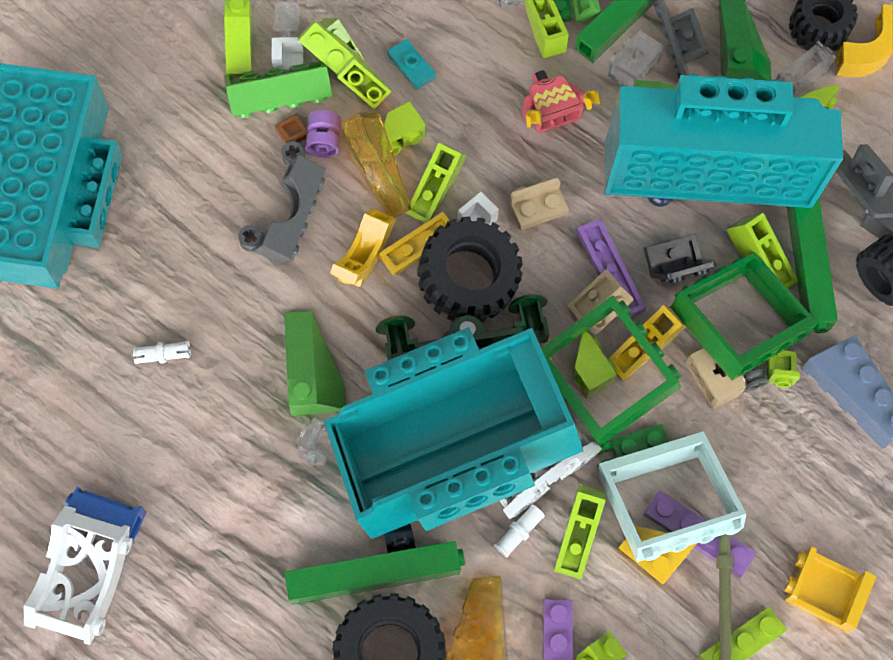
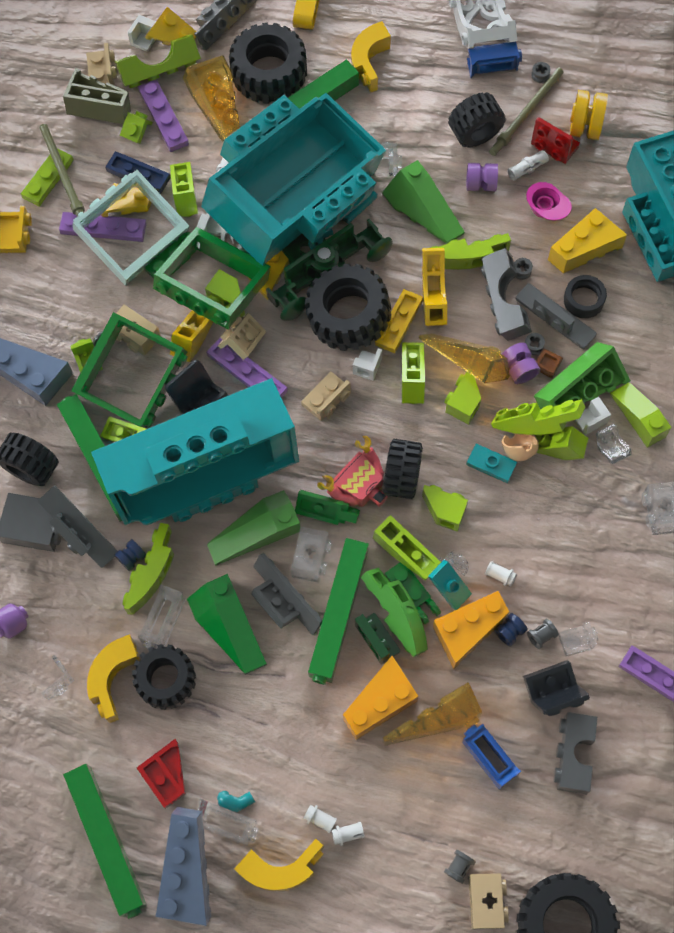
camera: 160 degrees right, 0 degrees up
(54, 364) = (586, 114): none -> yellow wheel
(55, 461) = (544, 68): none -> dark grey bush
(111, 364) = (553, 141): none -> red bracket
(164, 402) = (505, 136): none -> olive bar
(166, 226) = (585, 241): none -> yellow wedge
(175, 281) = (548, 201): none -> dark pink piece
(187, 420) = (476, 120): none -> black tyre
(201, 157) = (589, 282): none -> black tyre
(223, 357) = (482, 177): none -> medium lavender wheel
(253, 170) = (556, 316): none -> dark grey bracket
(253, 617) = (366, 45): none -> yellow arch
(310, 282) = (463, 256): none -> lime slope
(378, 56) = (520, 447): none -> light nougat hair
(481, 40) = (445, 507): none -> lime slope
(507, 79) = (402, 469): none -> black tyre
(586, 84) = (325, 508): none -> green hinge
(627, 584) = (123, 165): none -> dark blue plate

